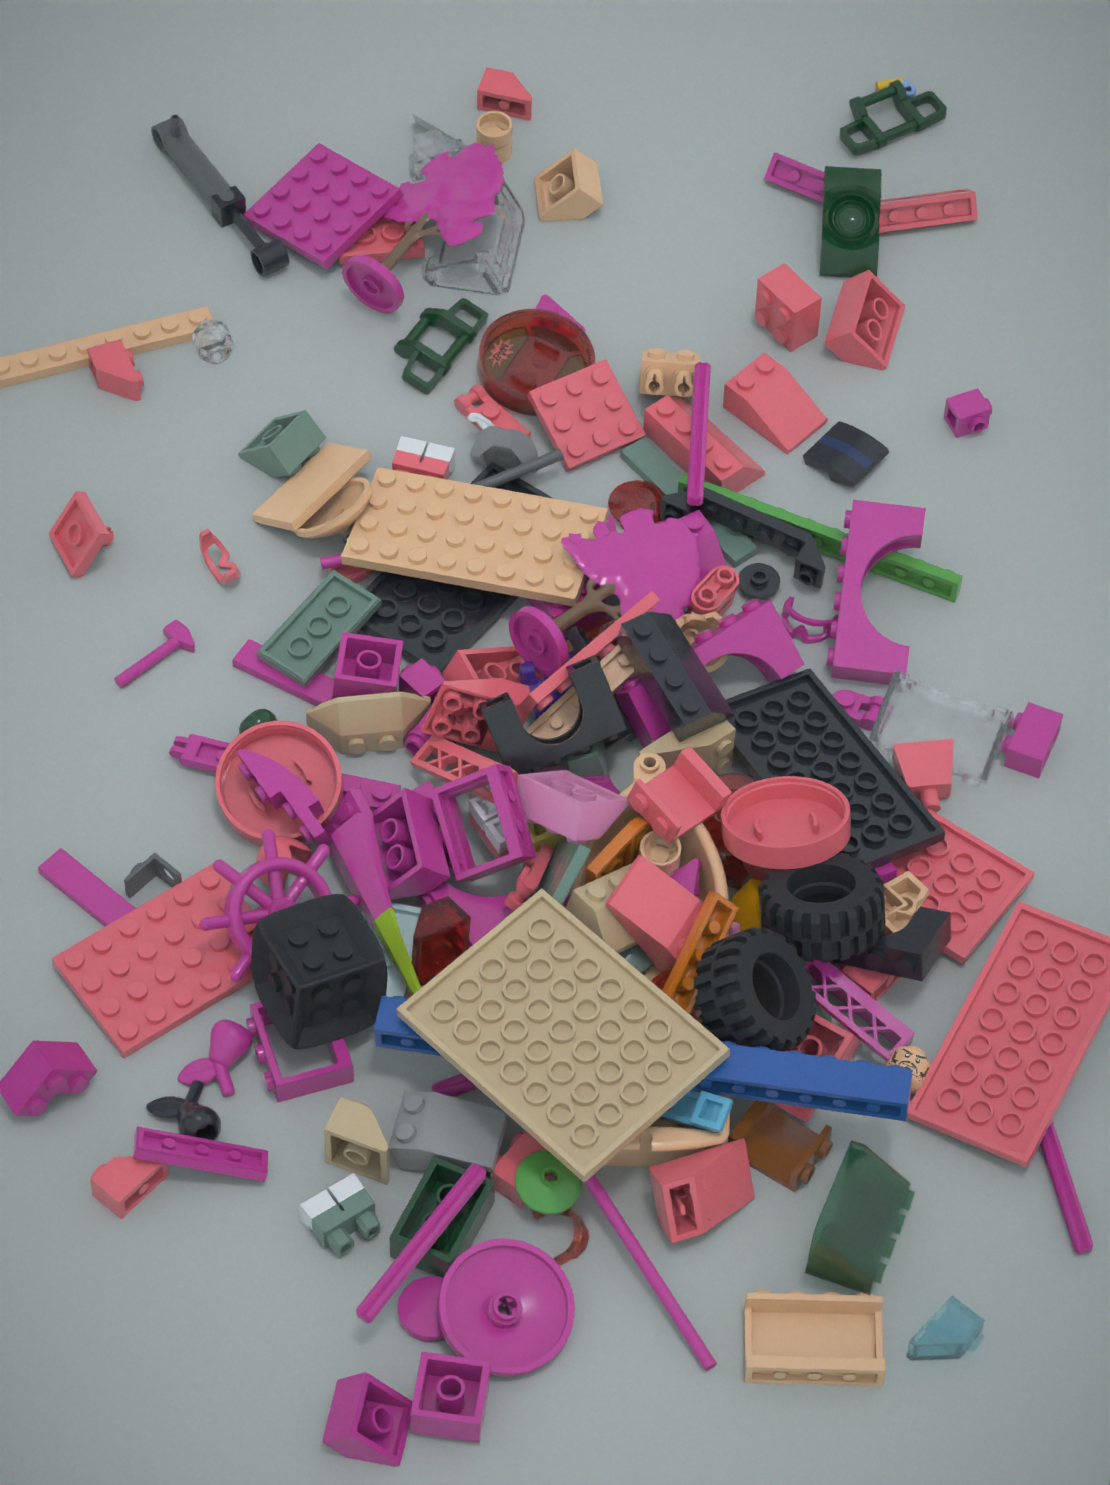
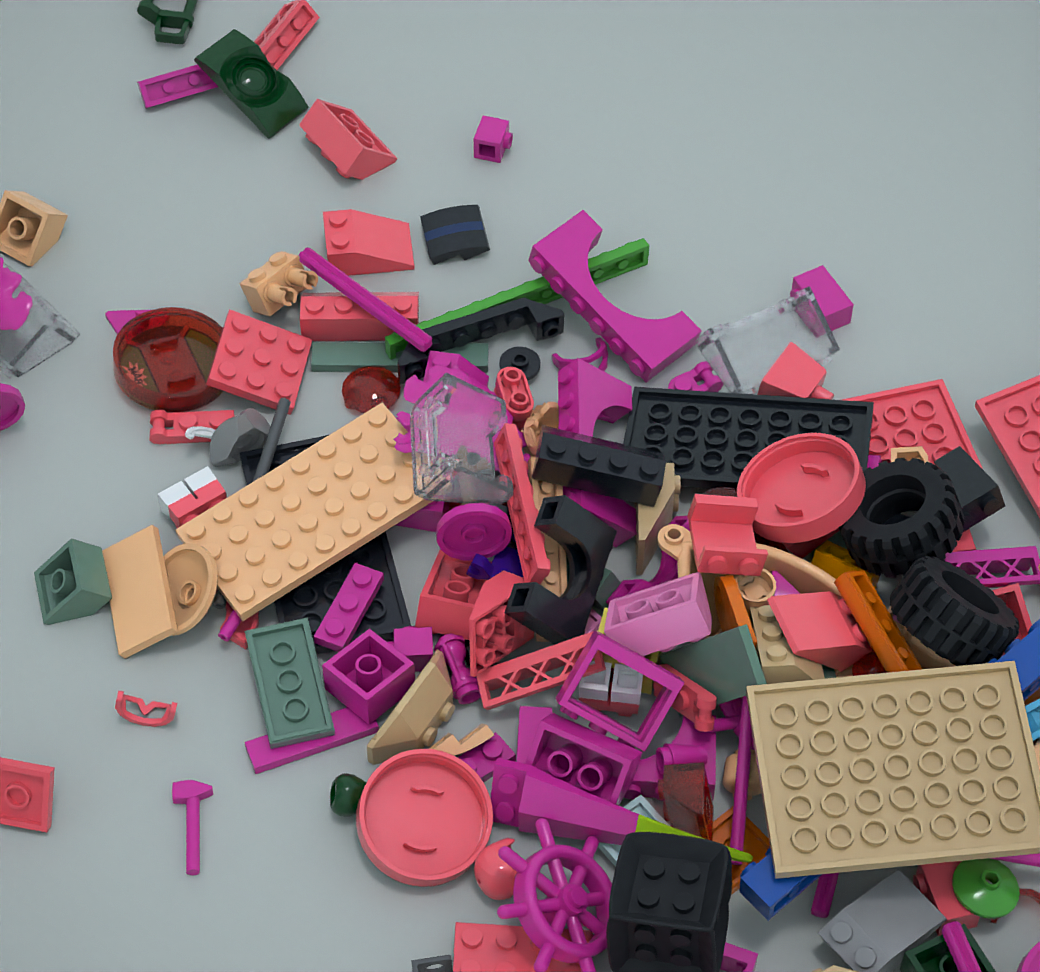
camera: 50 degrees left, 0 degrees up
(198, 752) = (332, 854): dark pink hinge -> none
(285, 791) = (435, 814): dark pink slope -> none
(362, 765) = (452, 746): none -> light nougat slope
(418, 619) = (349, 607): none -> dark pink plate
(434, 317) = (80, 427): dark green bar -> none
(474, 906) = (679, 754): none -> dark pink cone
(601, 576) = (454, 444): none -> clear windscreen
(787, 307) = (292, 170): coral brick -> none

